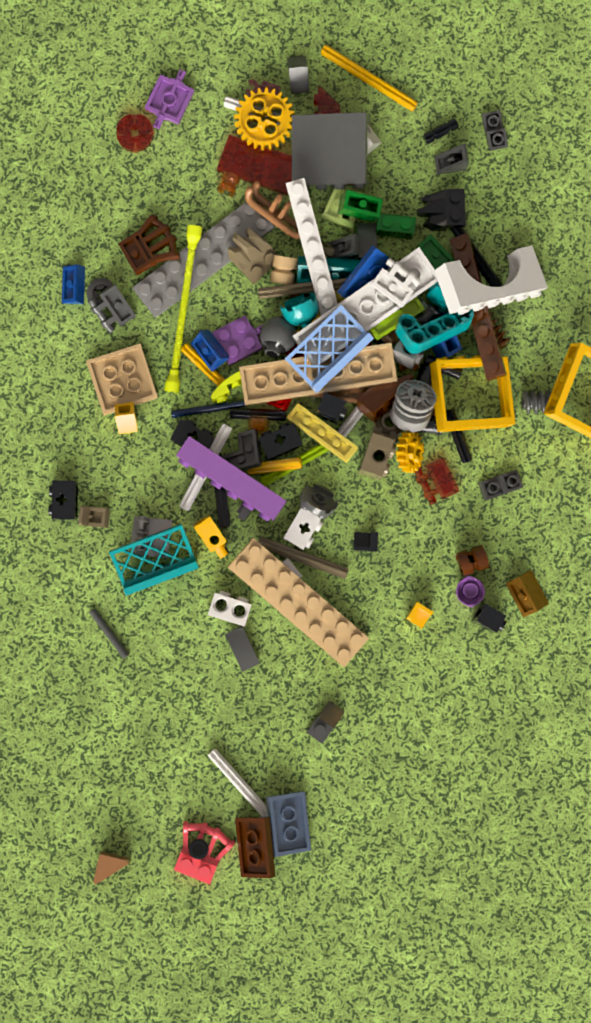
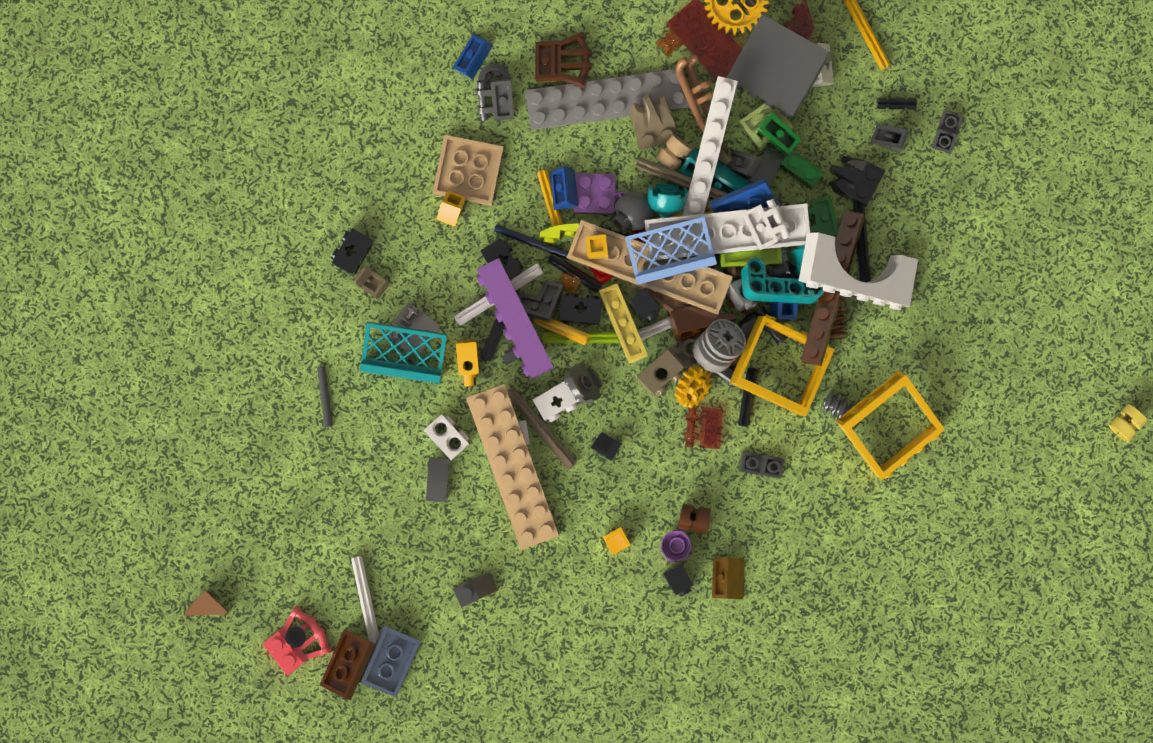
camera: 35 degrees right, 0 degrees up
(193, 235) = (607, 75): neon yellow hose -> none
(266, 380) = (597, 246): none -> yellow panel

